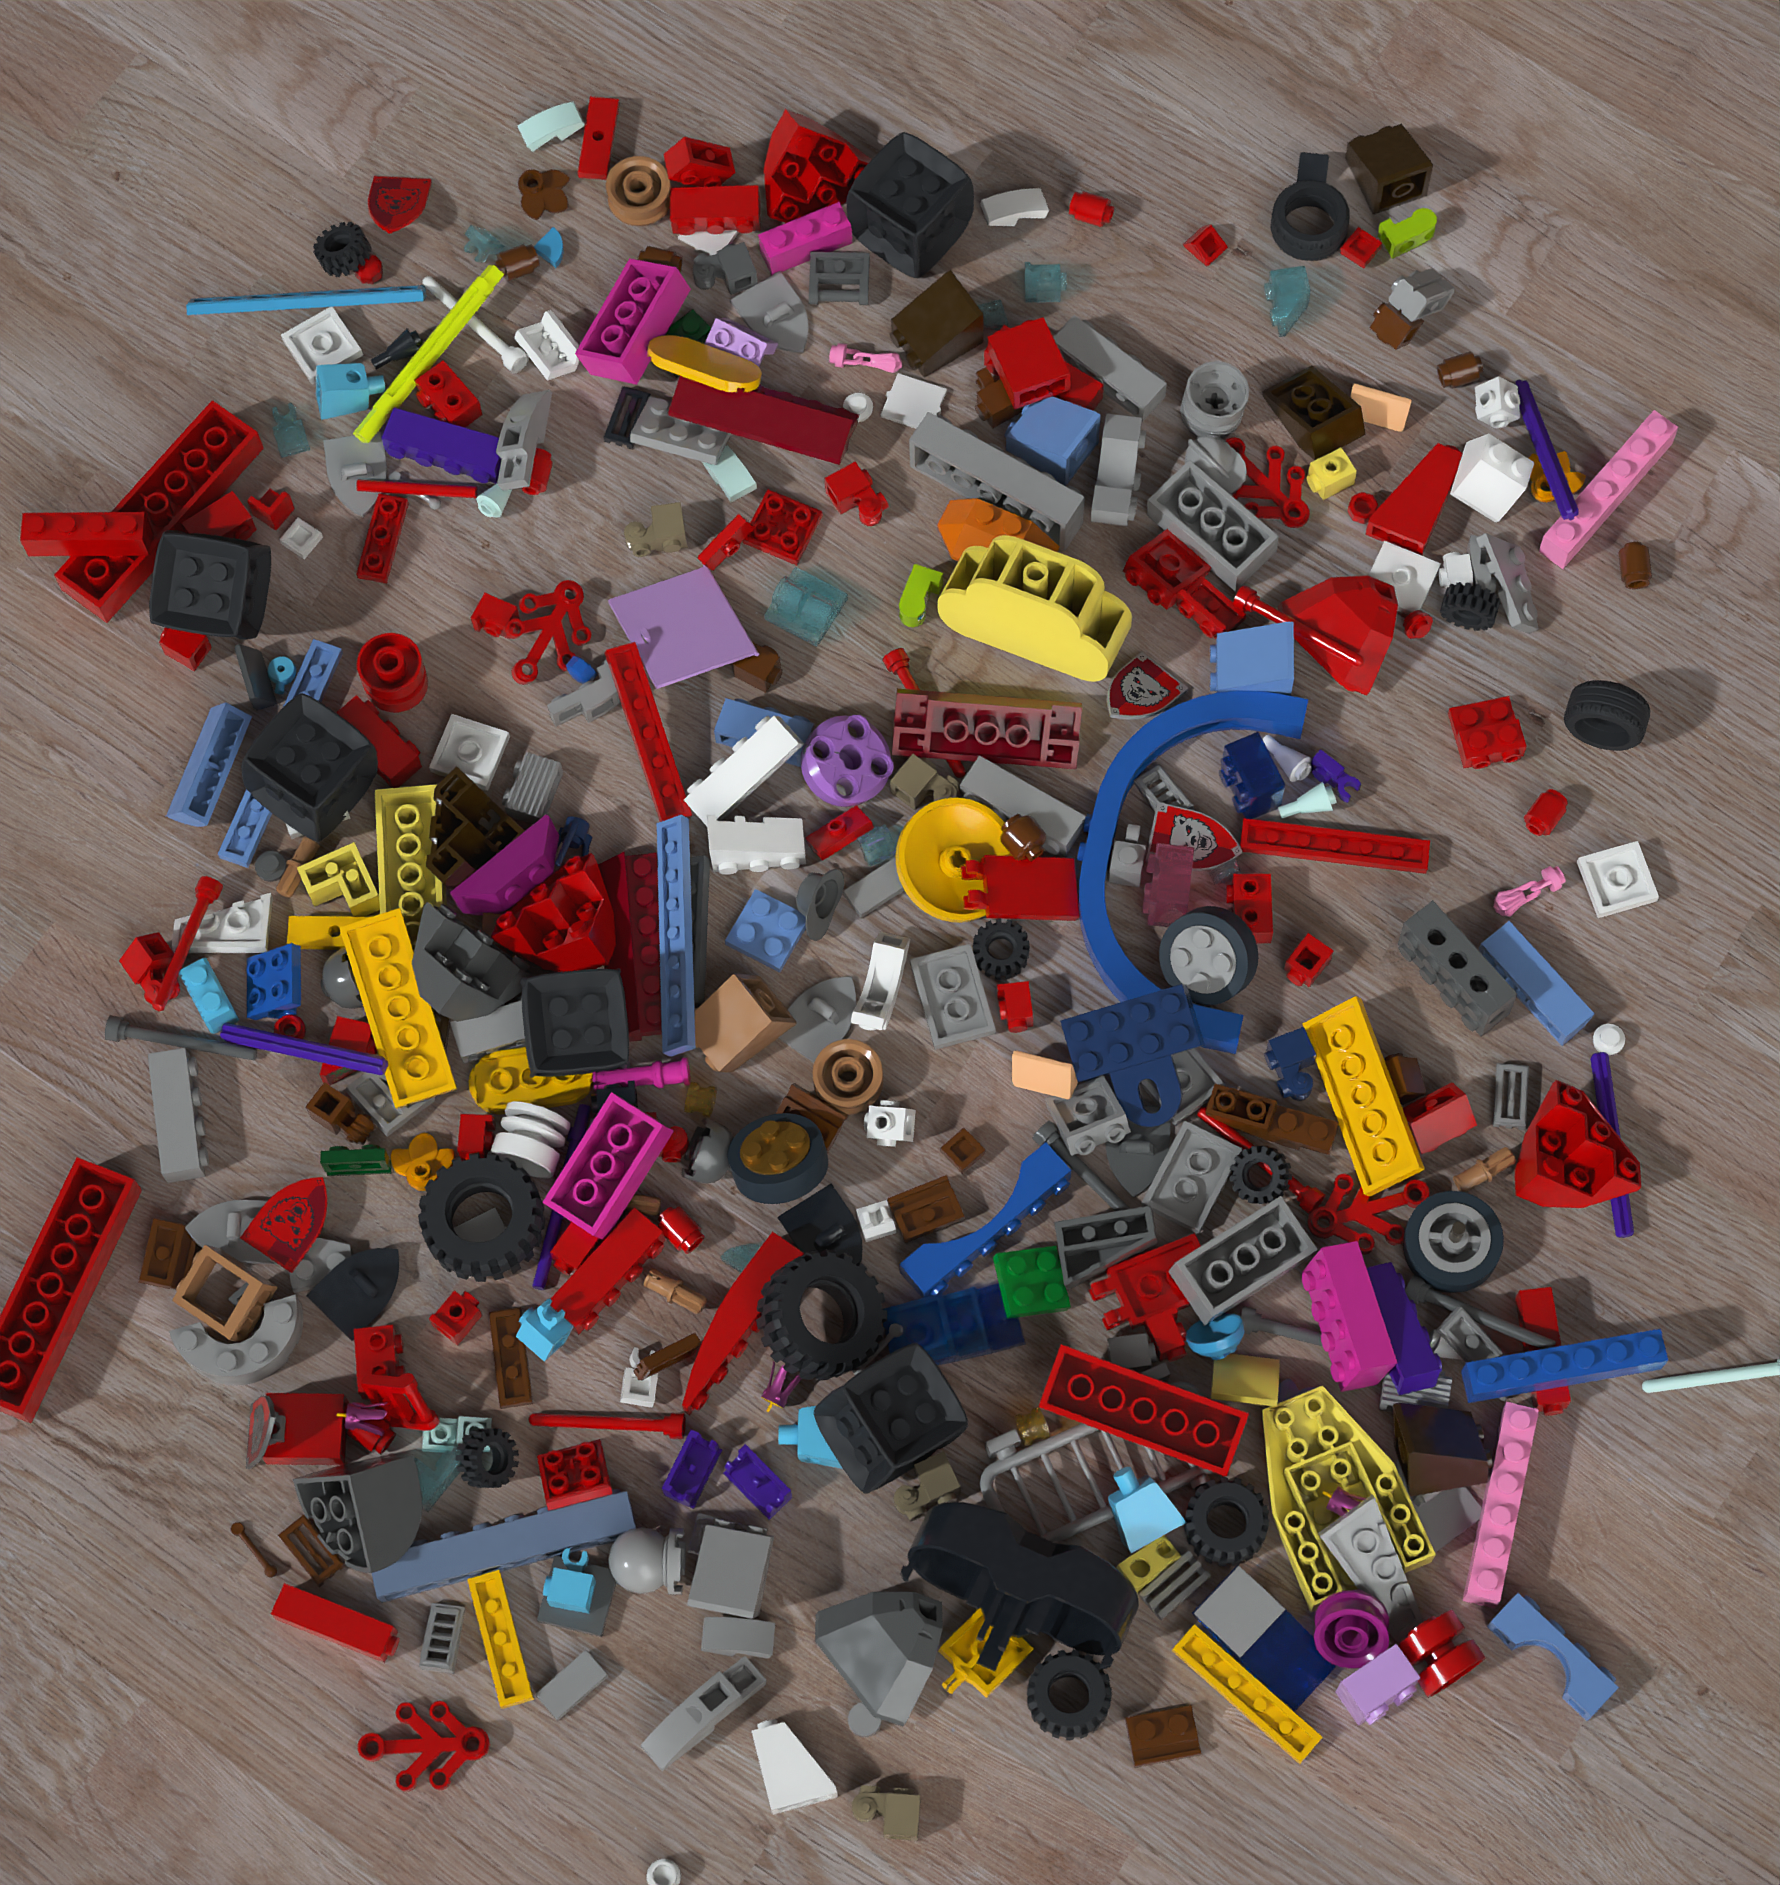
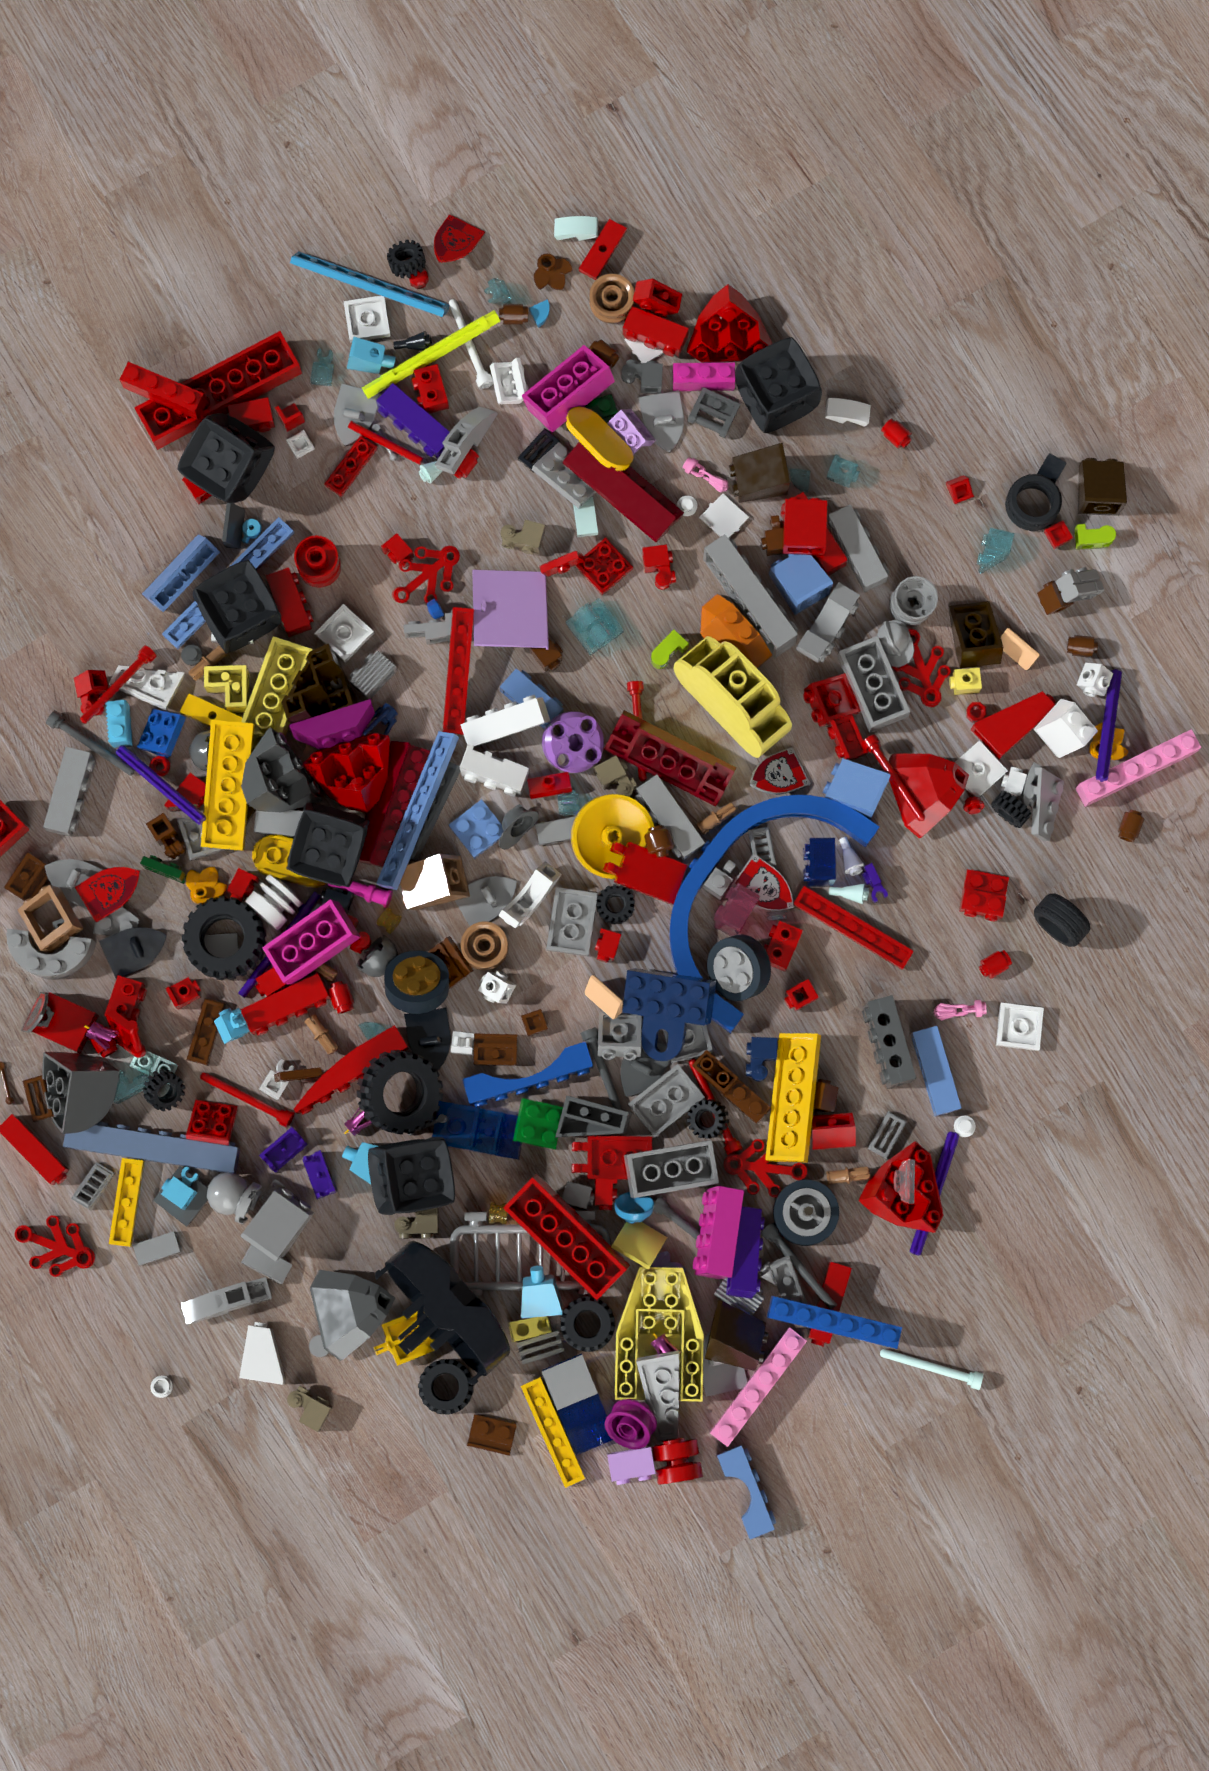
camera: 20 degrees right, 10 degrees up
(1084, 782) = (716, 818): none -> medium nougat axle
(1567, 1136) = (905, 1181): none -> clear tile

